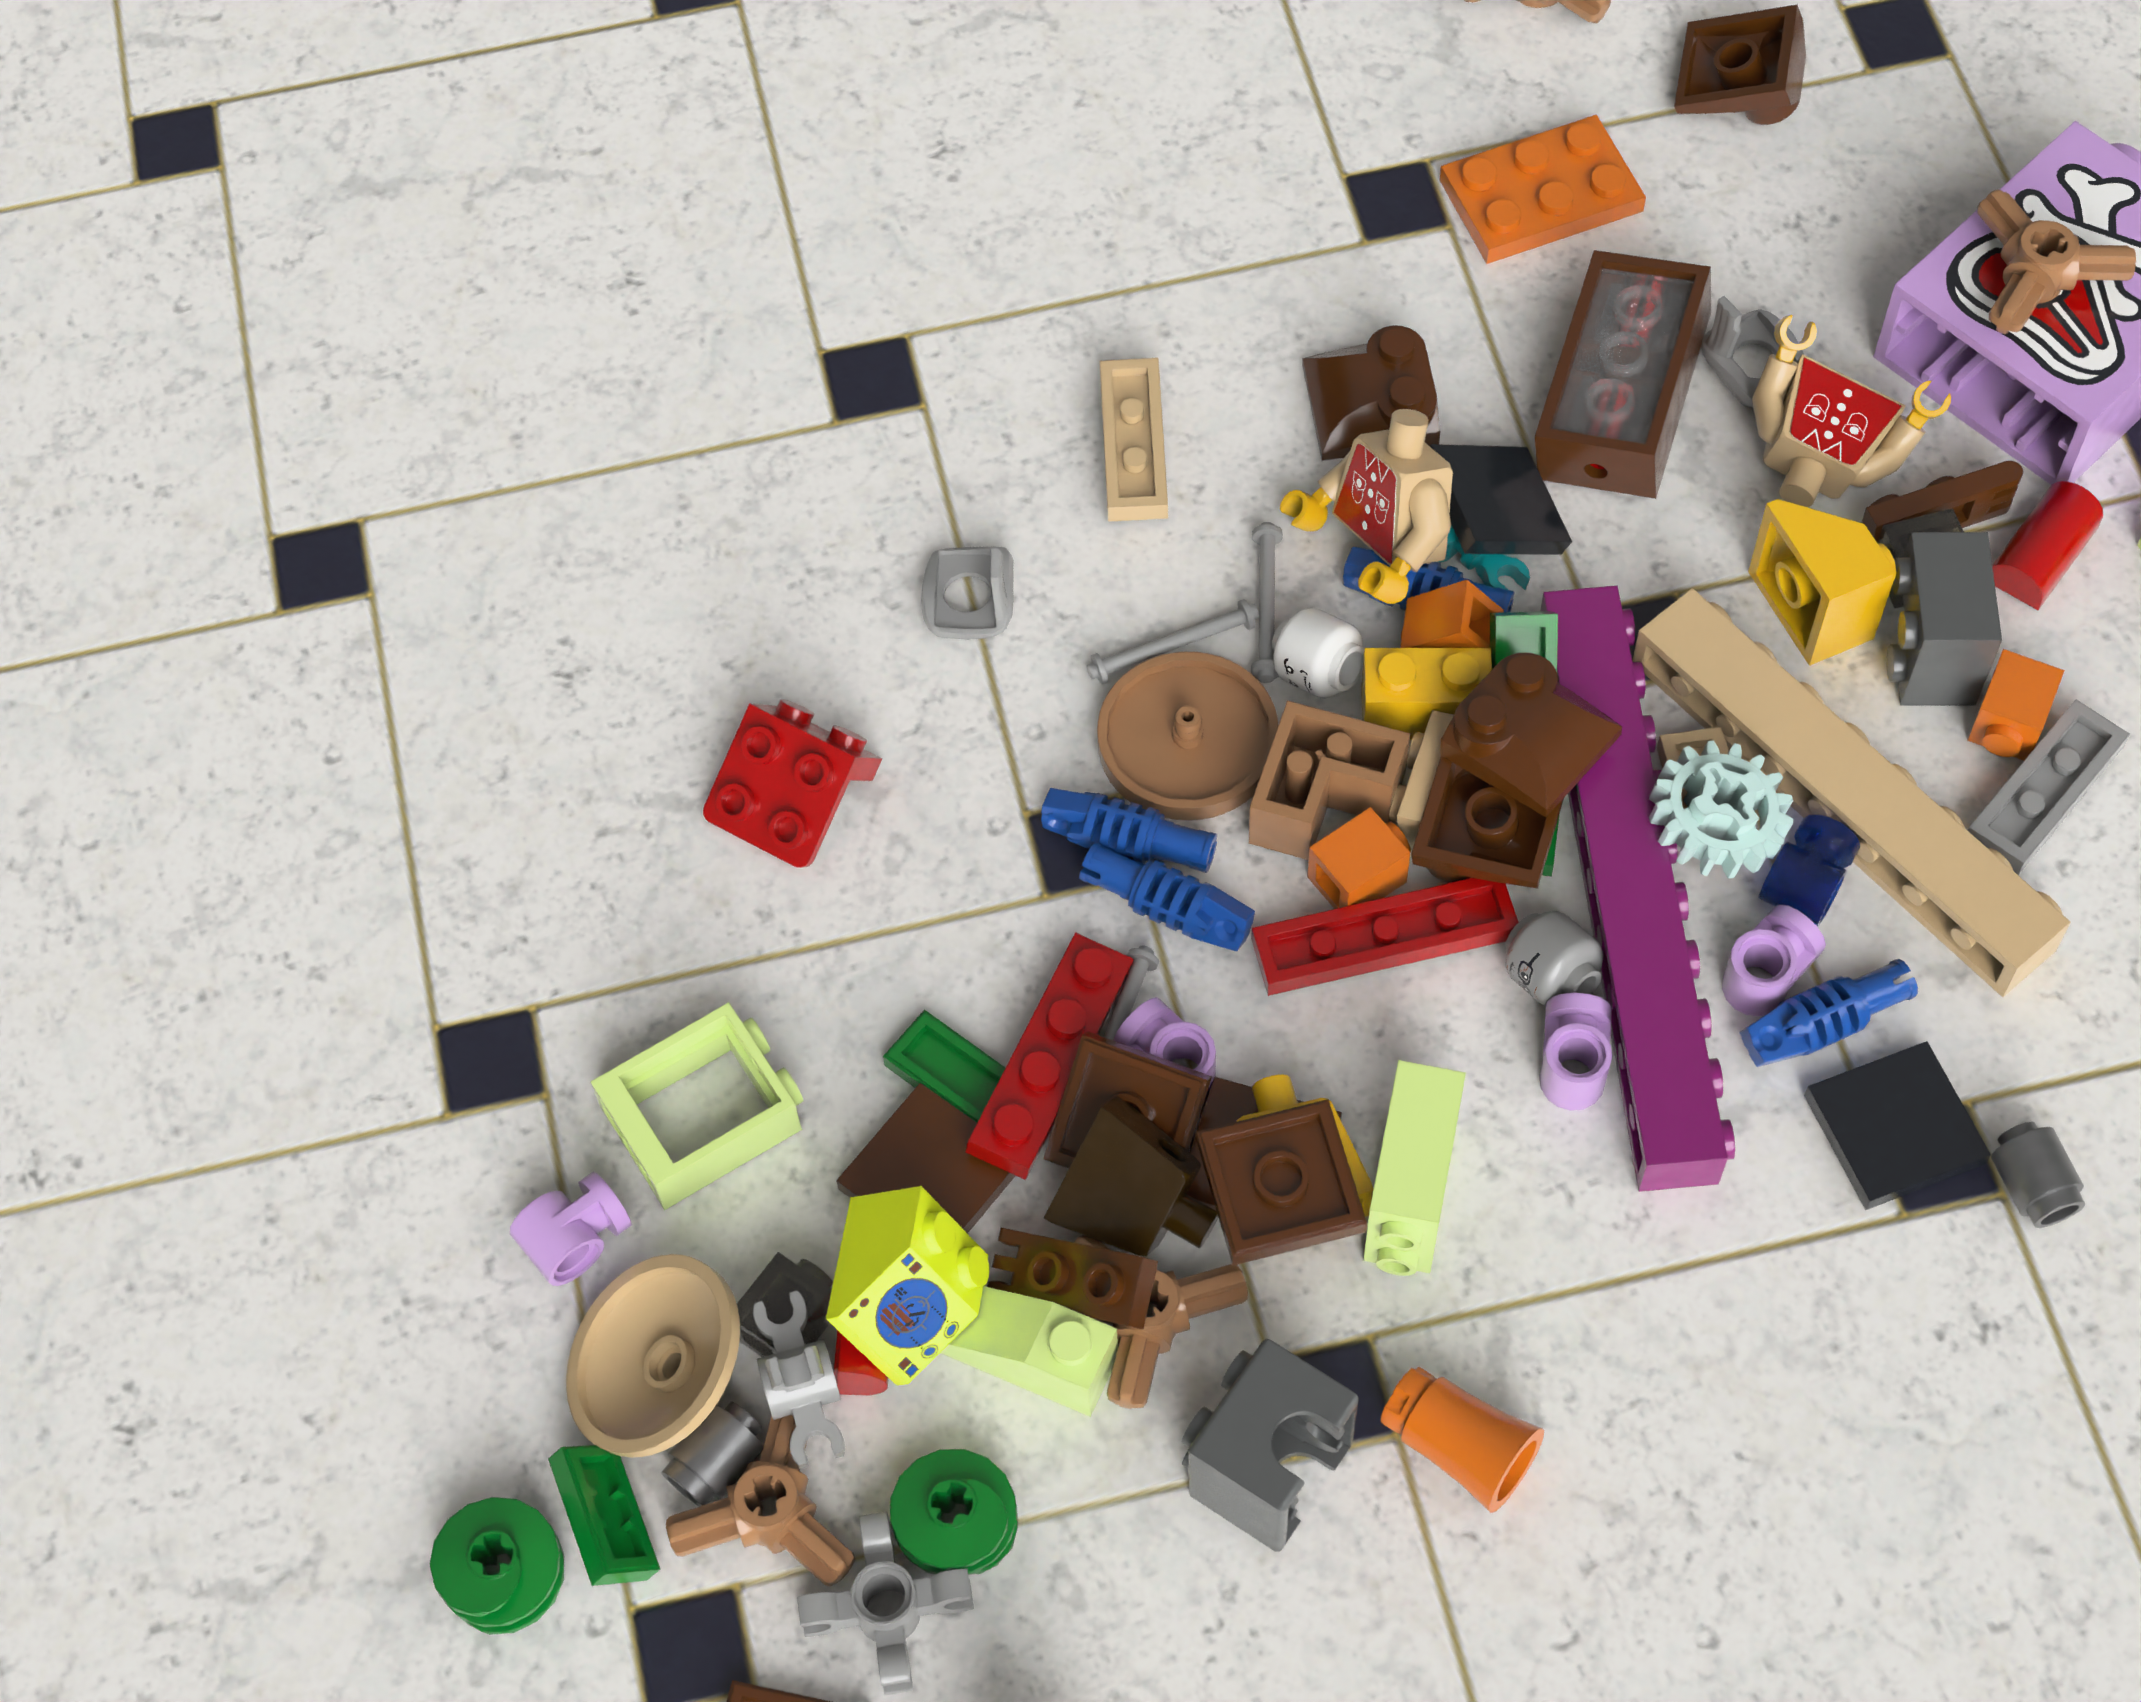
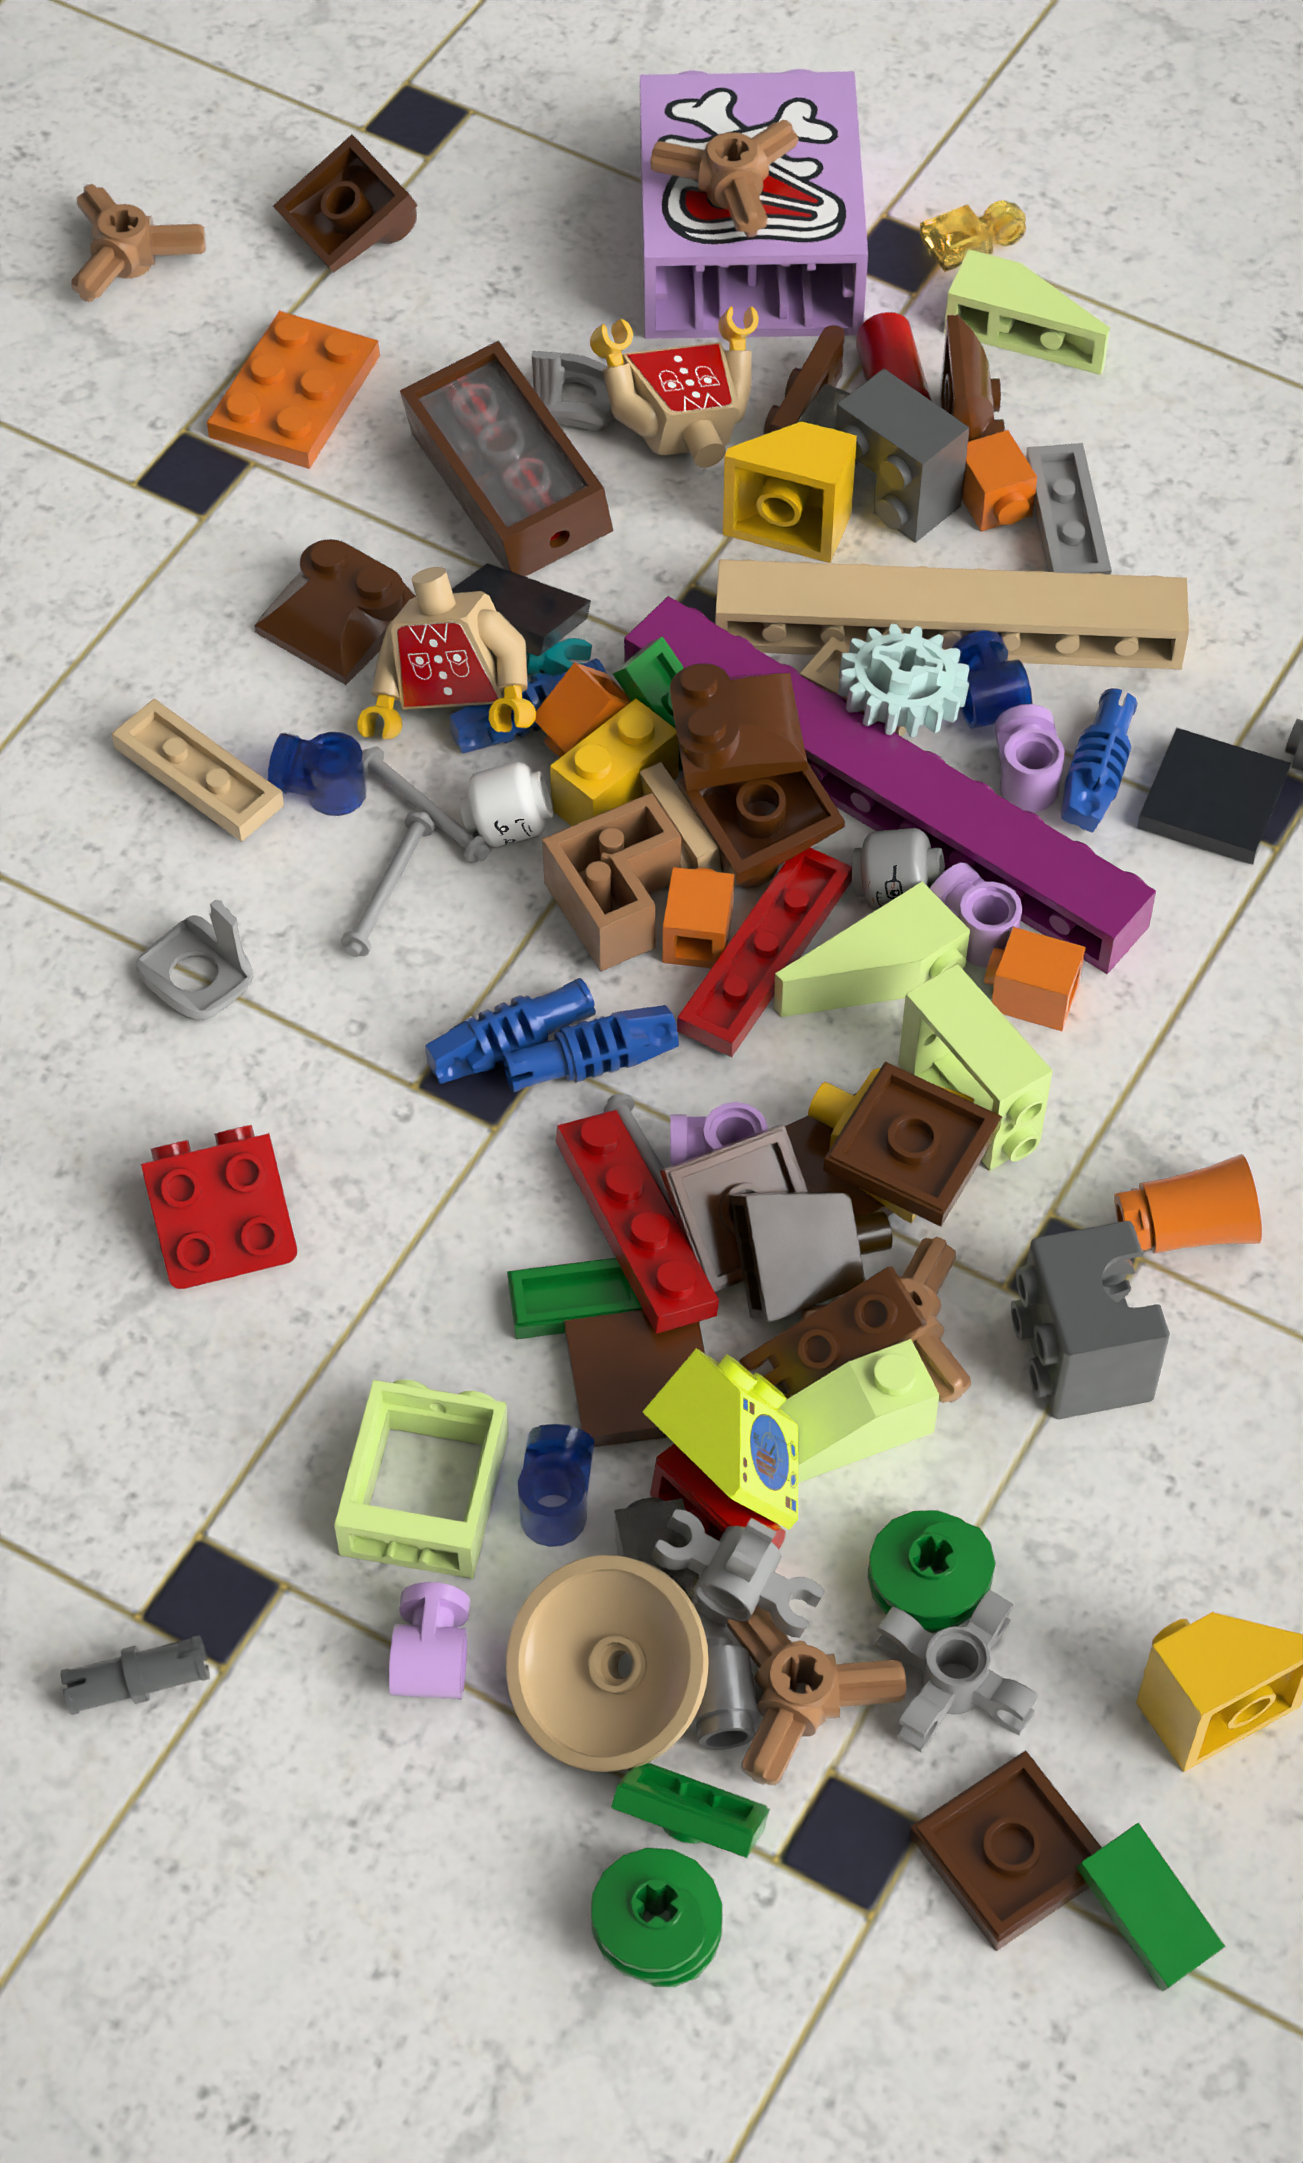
camera: 50 degrees left, 5 degrees down
(381, 1065) = (134, 1674): none -> dark grey pin
(792, 1179) = (555, 1464): none -> clear blue piece
(1186, 735) = (471, 936): medium nougat piece -> none
(1207, 497) = (324, 769): none -> clear blue piece
(1467, 1019) = (876, 957): none -> yellowish green slope
(1562, 1142) = (1035, 977): none -> orange brick
(2067, 610) = (966, 381): none -> reddish brown slope

